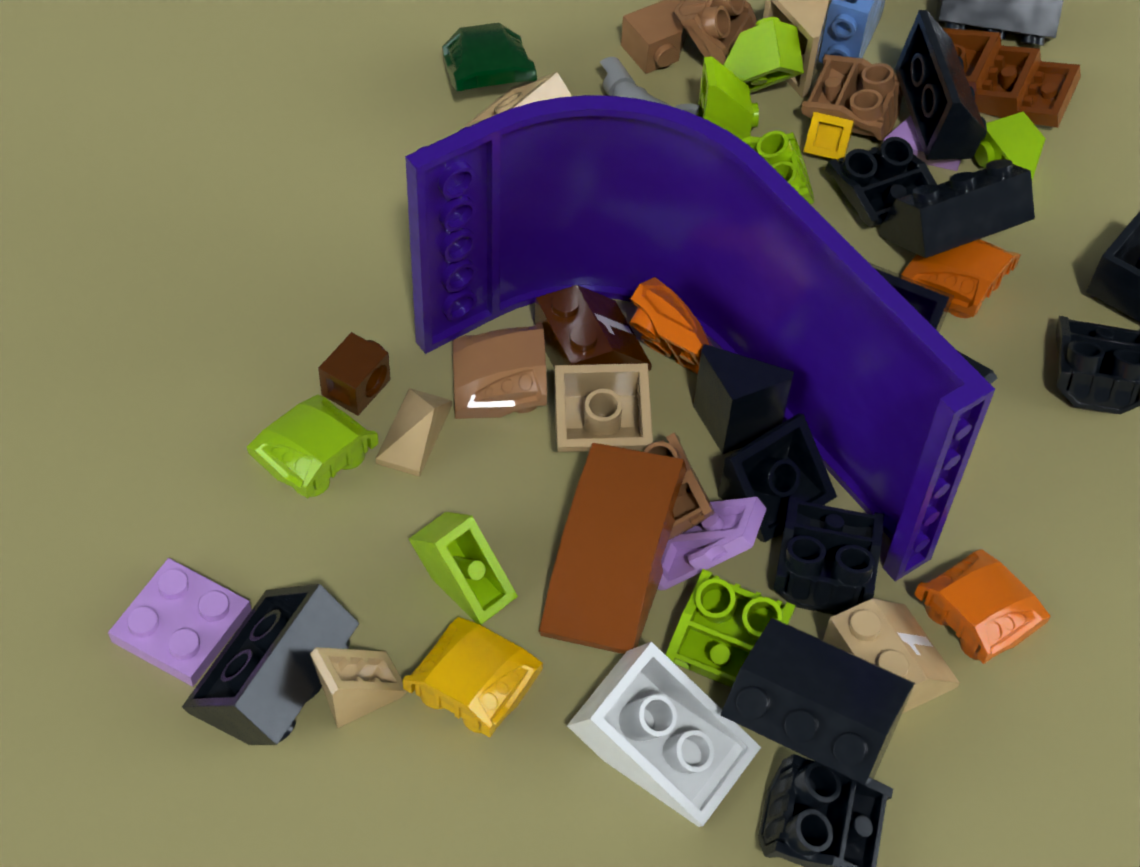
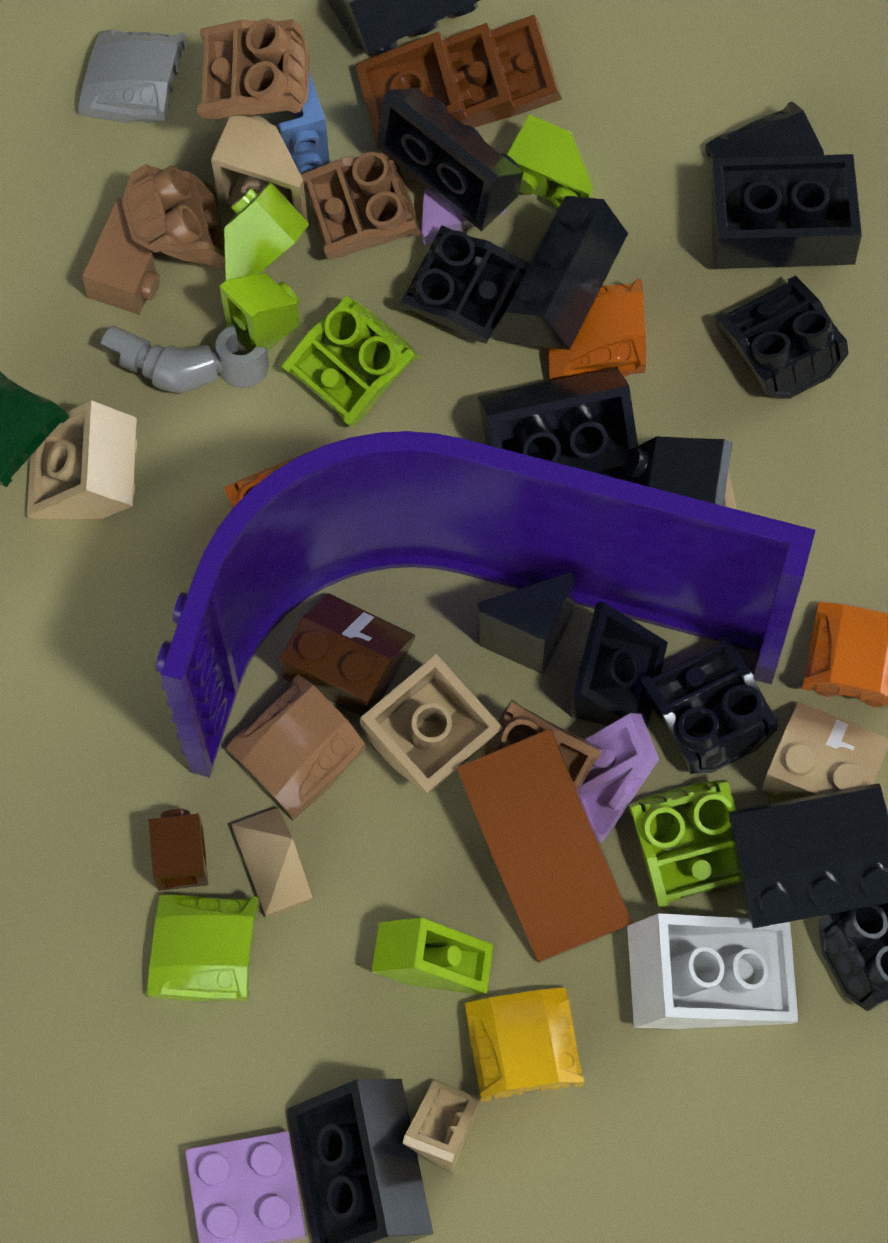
camera: 35 degrees left, 15 degrees up
(668, 324) = (419, 592): orange slope -> none
(828, 136) = (374, 268): yellow plate -> none

